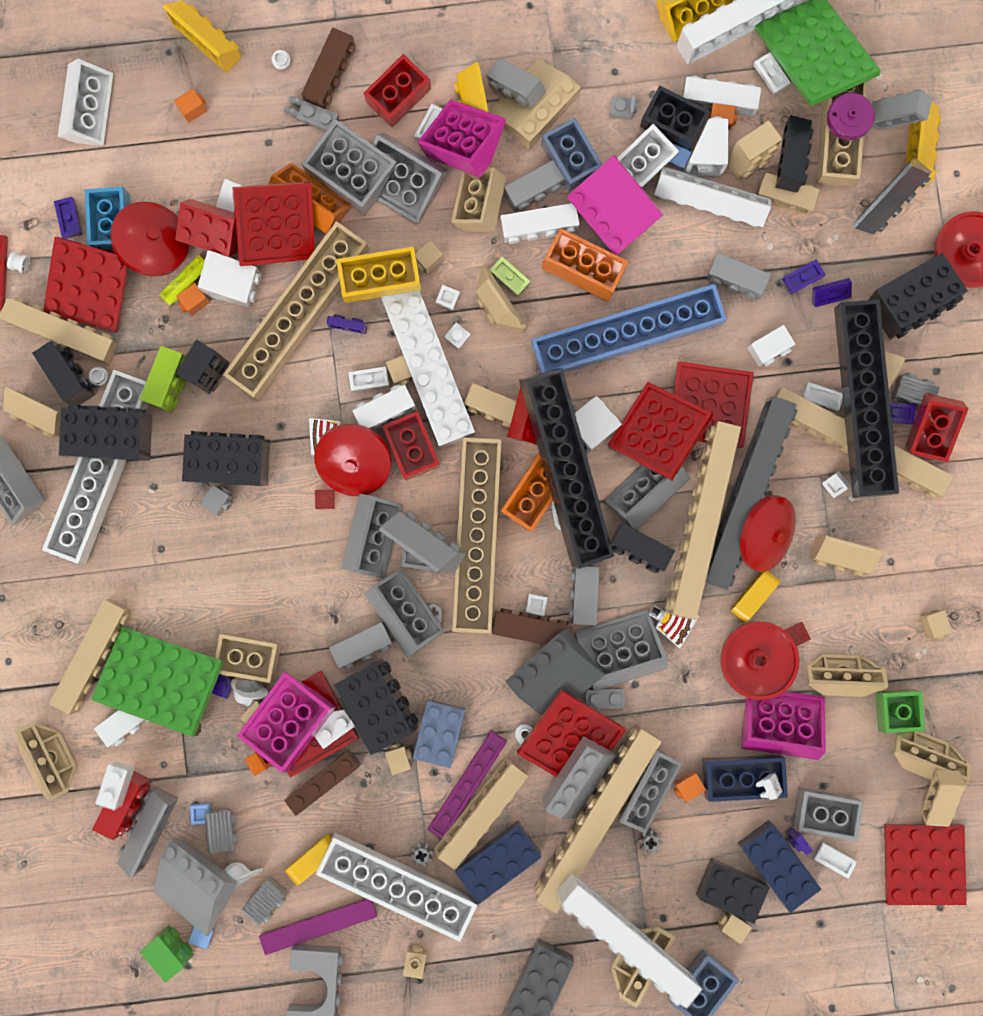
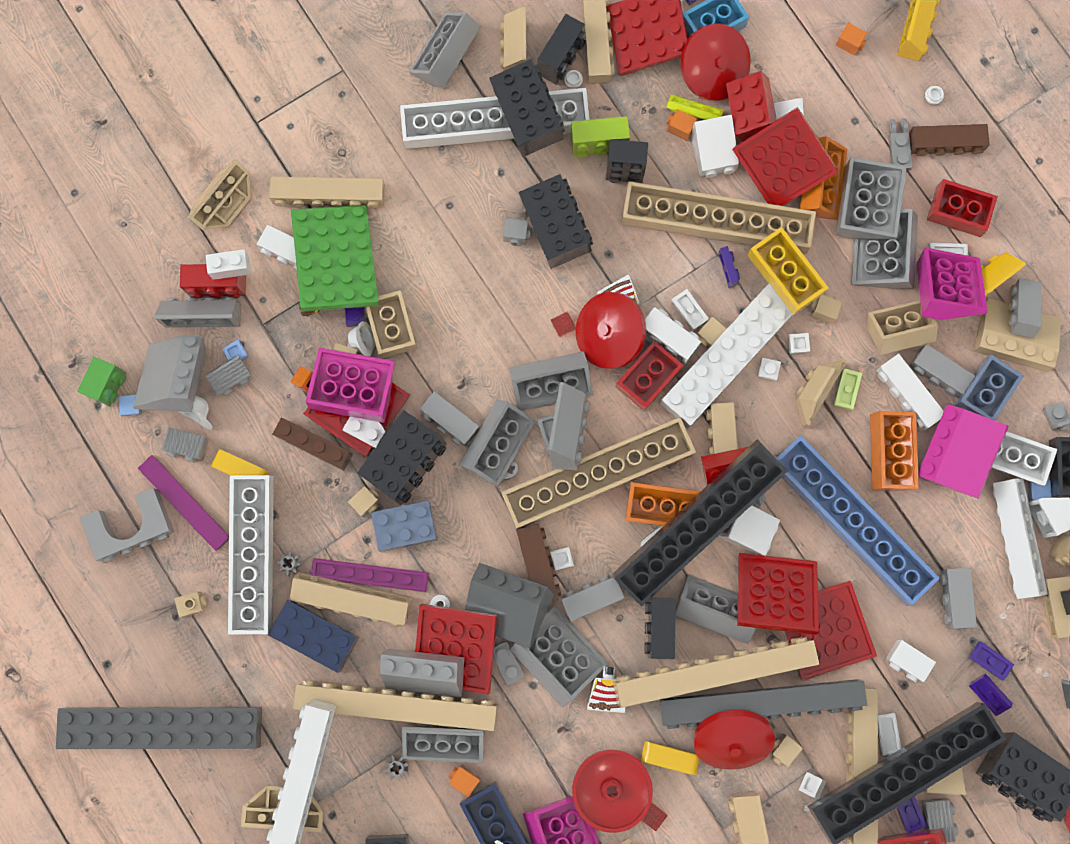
camera: 65 degrees right, 5 degrees down
(796, 492) = (785, 750): none -> tan brick

